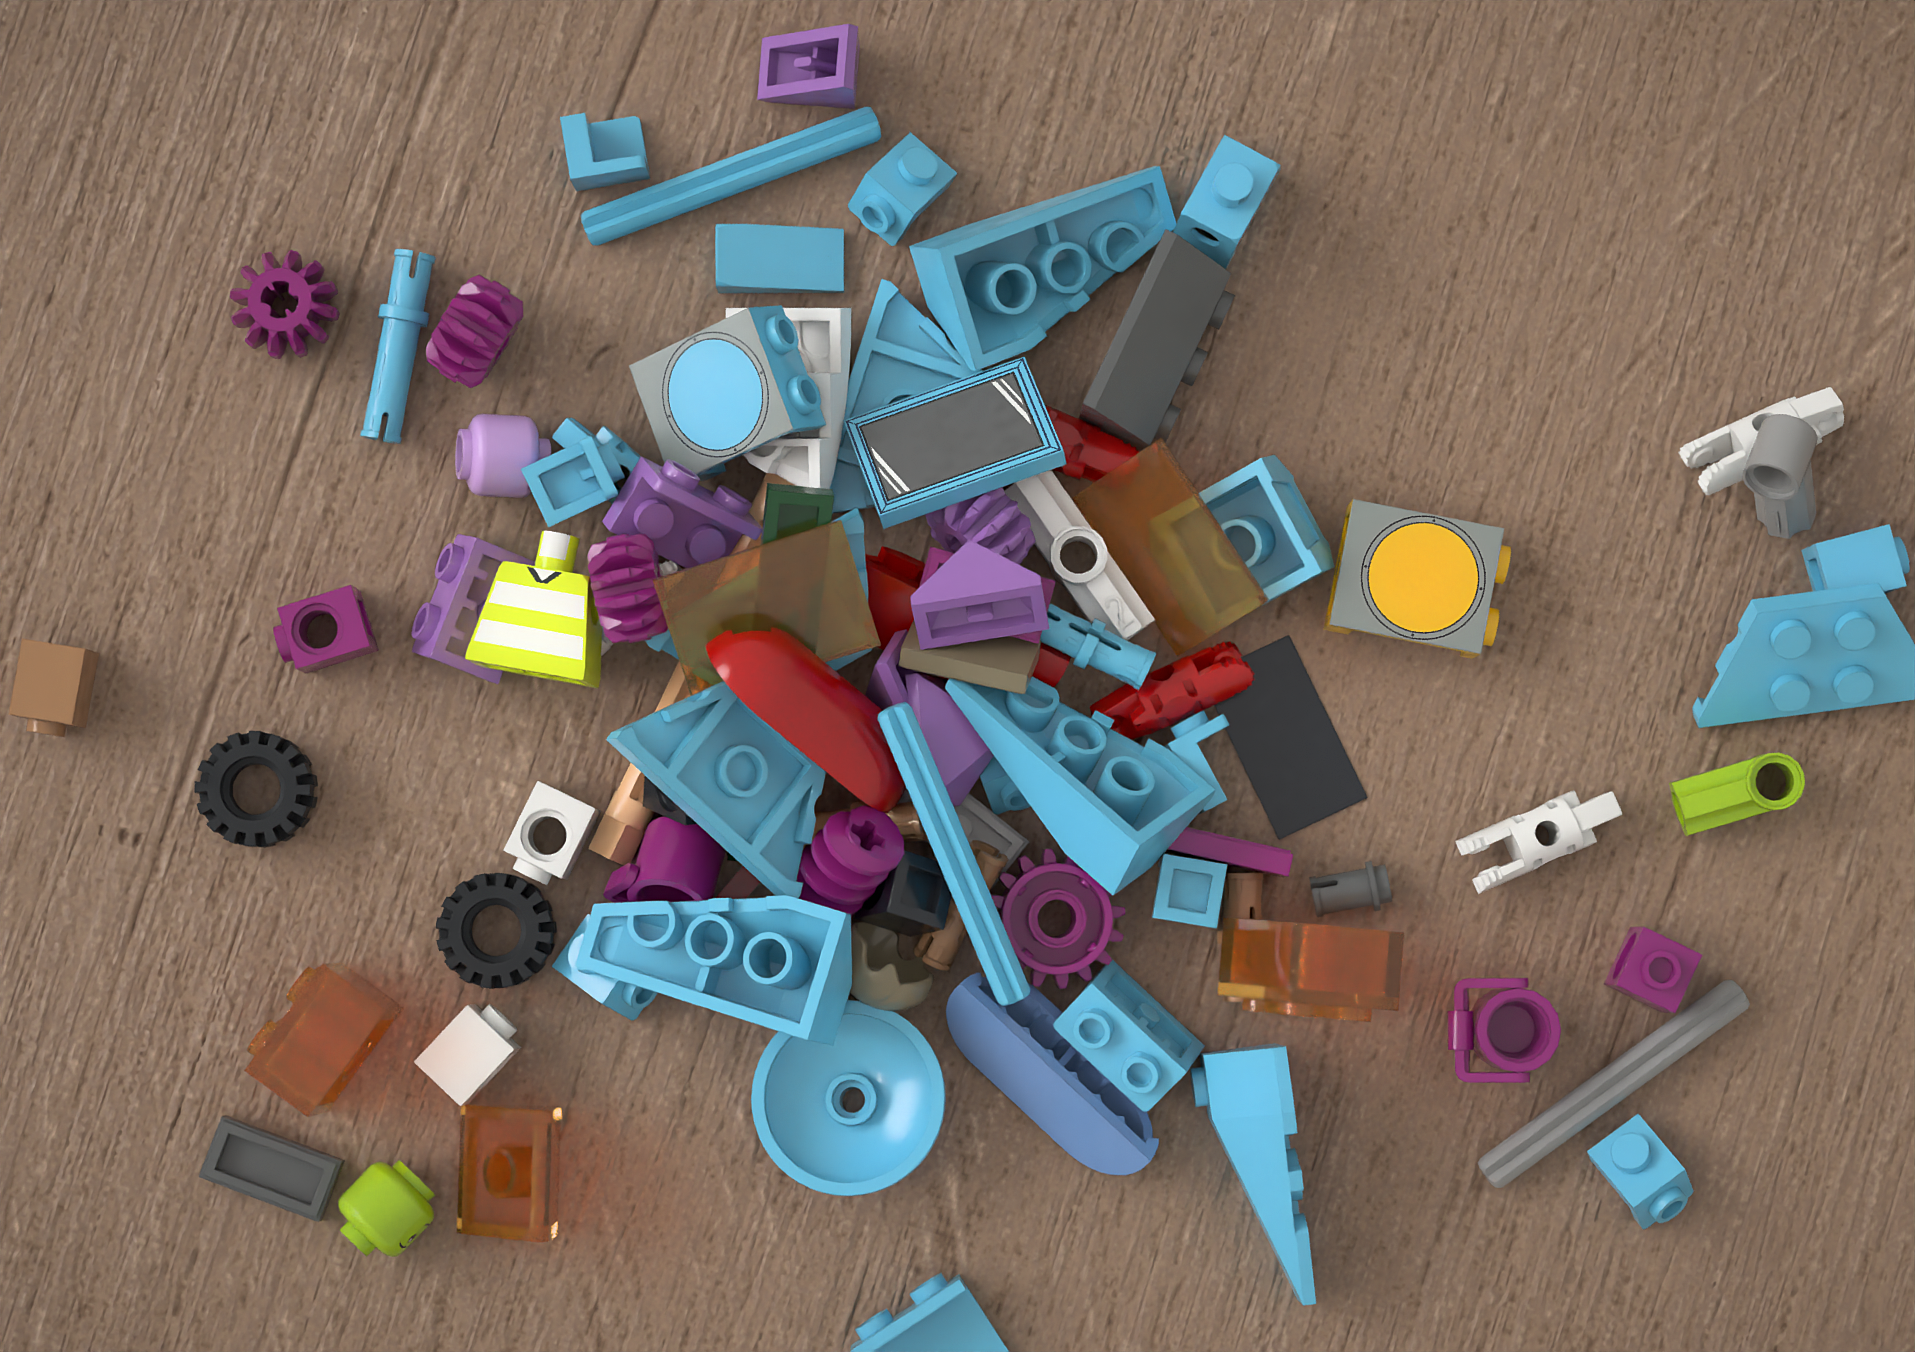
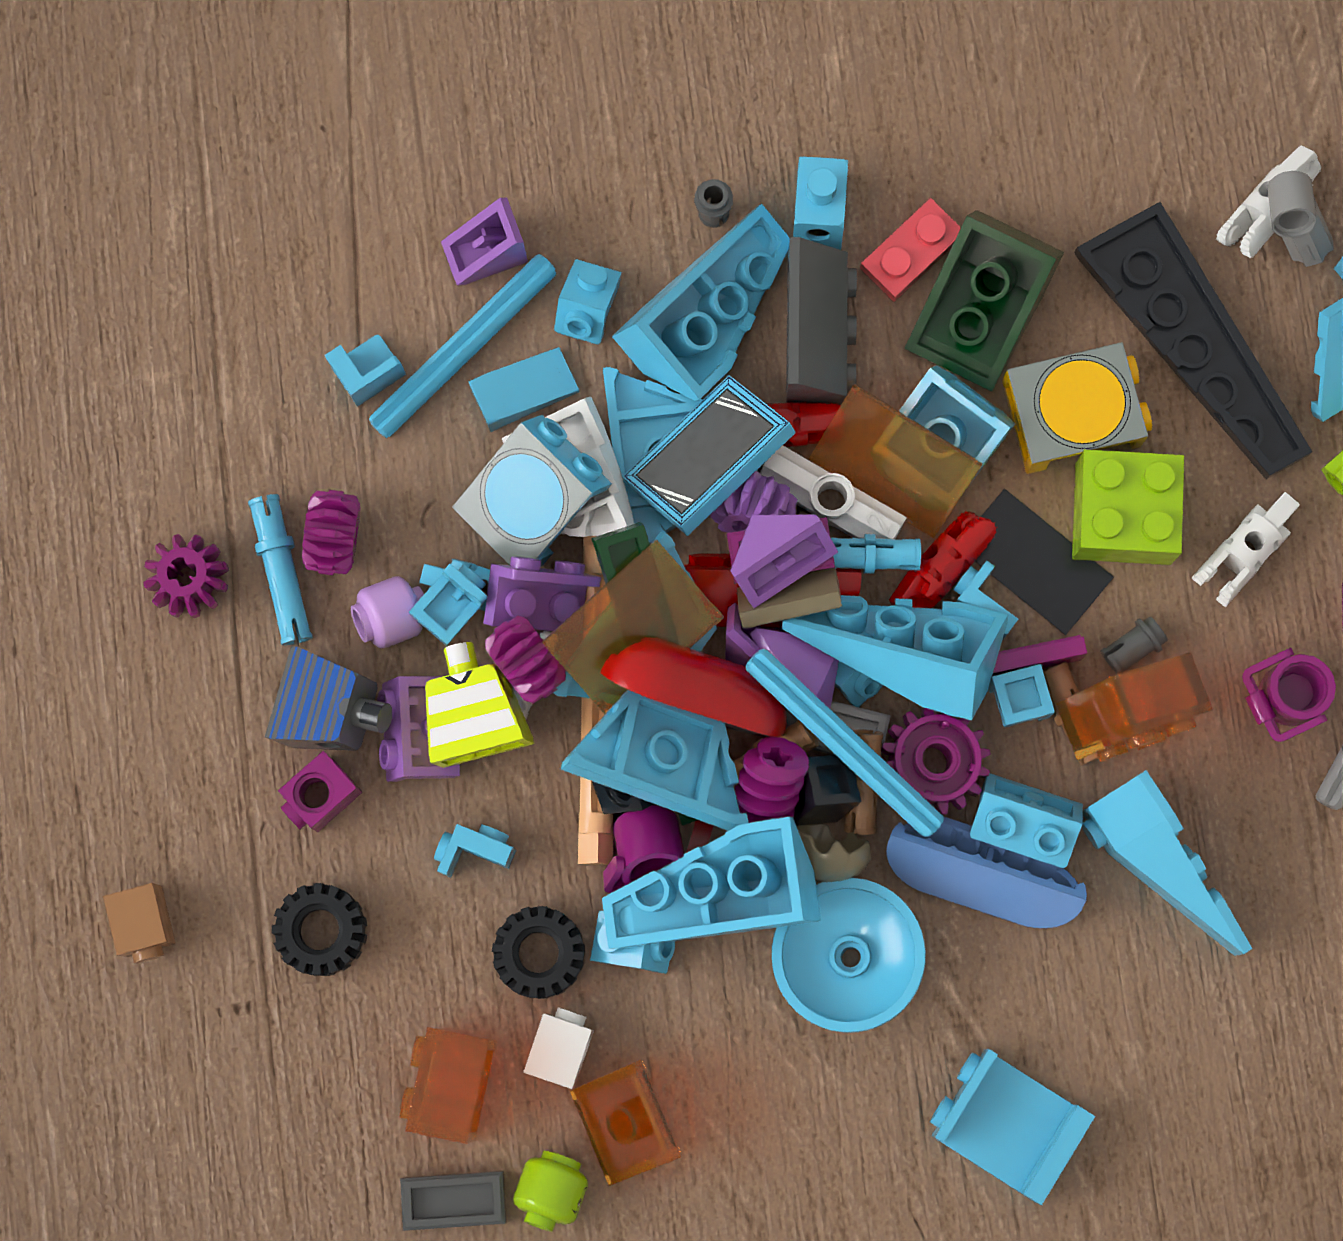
camera: 15 degrees left, 5 degrees down
(377, 531) = (324, 705): none -> dark grey torso
(491, 777) = (485, 843): none -> medium azure bracket
(543, 804) = (538, 842): white brick -> none
(1112, 128) = (718, 194): none -> dark grey pin
(1313, 301) = (911, 250): none -> coral plate
(1368, 400) = (983, 299): none -> dark green slope
(1419, 725) = (1128, 507): none -> lime brick
(1590, 517) = (1178, 312): none -> black wing

